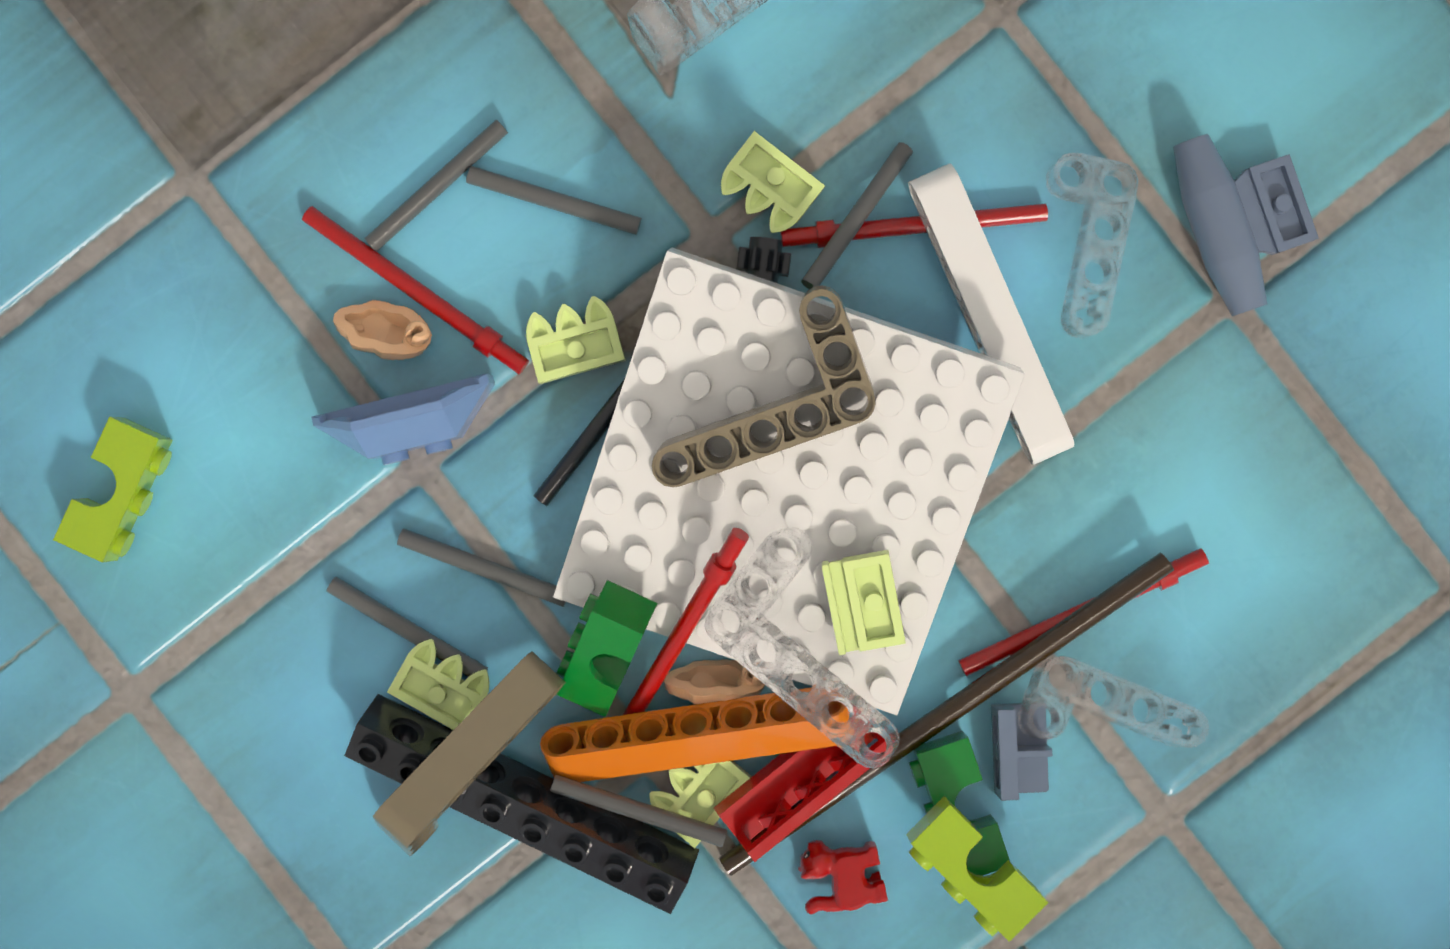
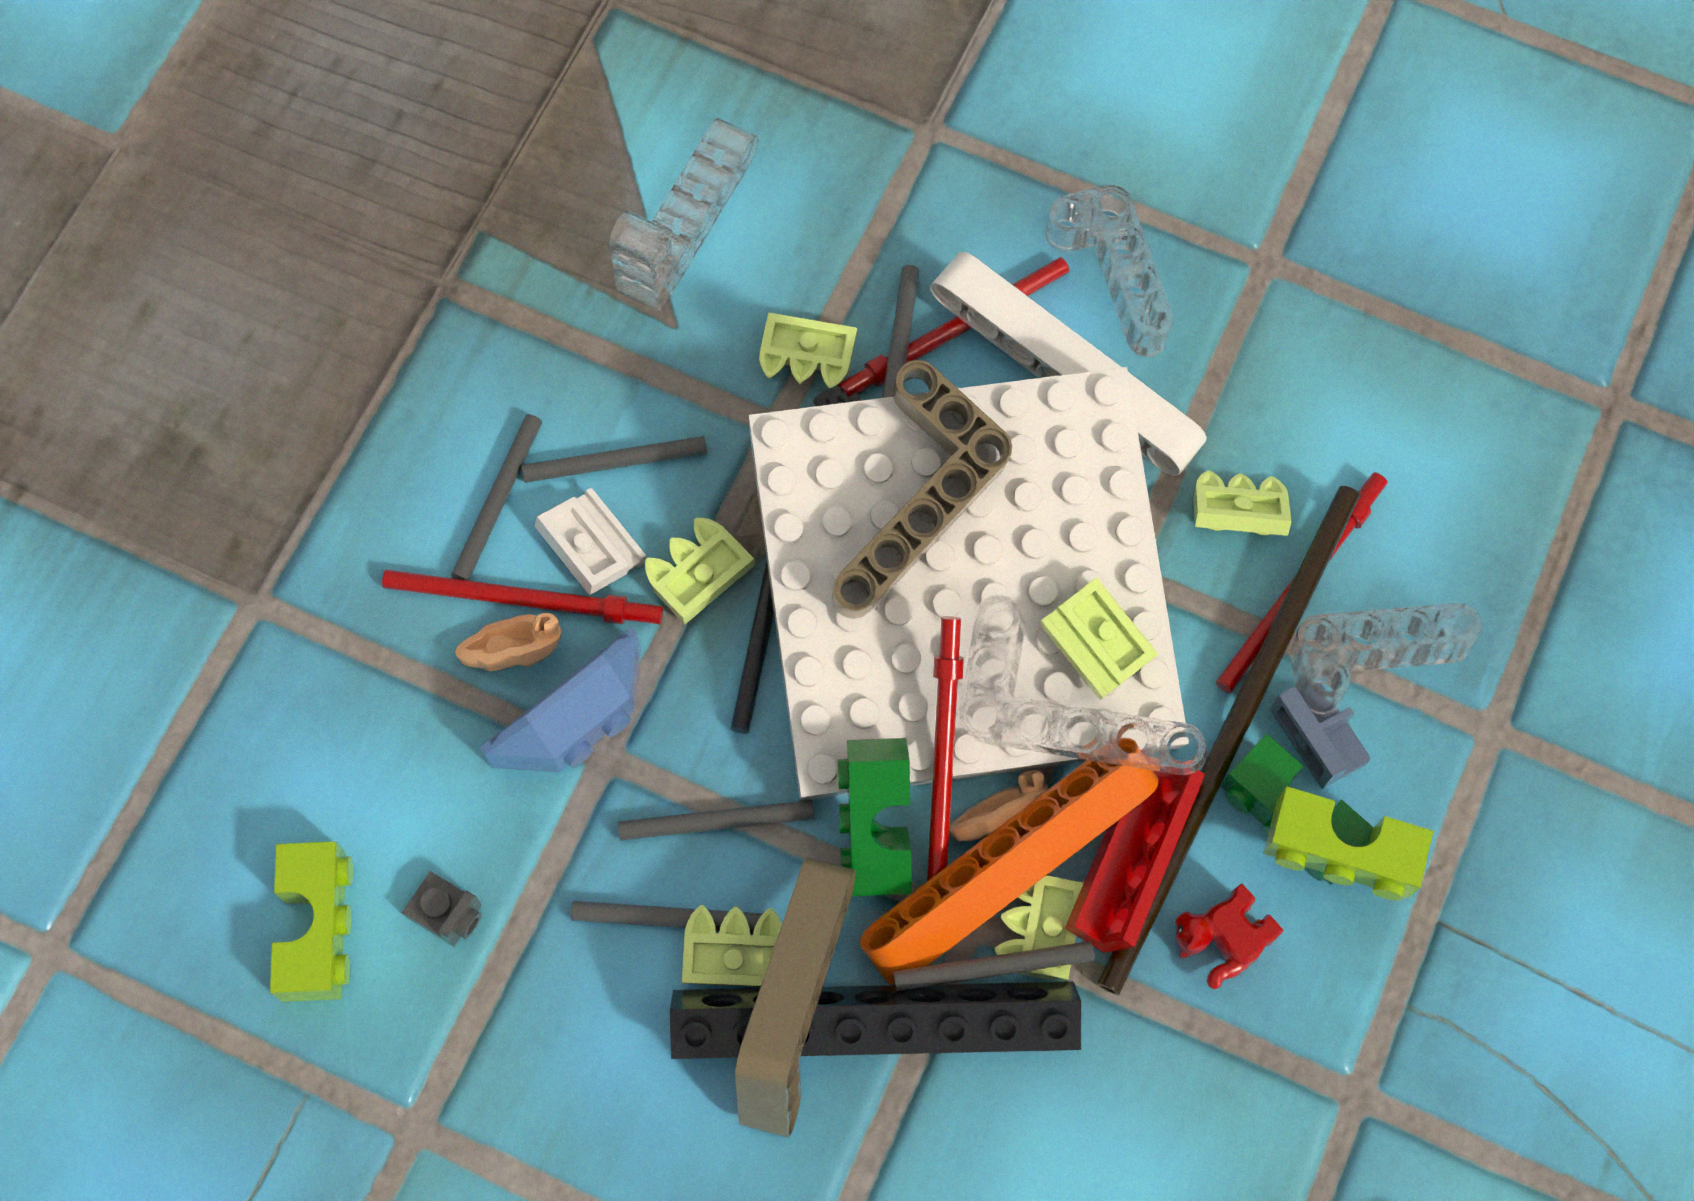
camera: 30 degrees left, 20 degrees down
(228, 531) = (444, 909): none -> dark grey bracket
(495, 269) = (590, 541): none -> white plate
(1069, 520) = (1241, 505): none -> yellowish green plate
(1240, 218) = (1233, 189): sand blue plate -> none

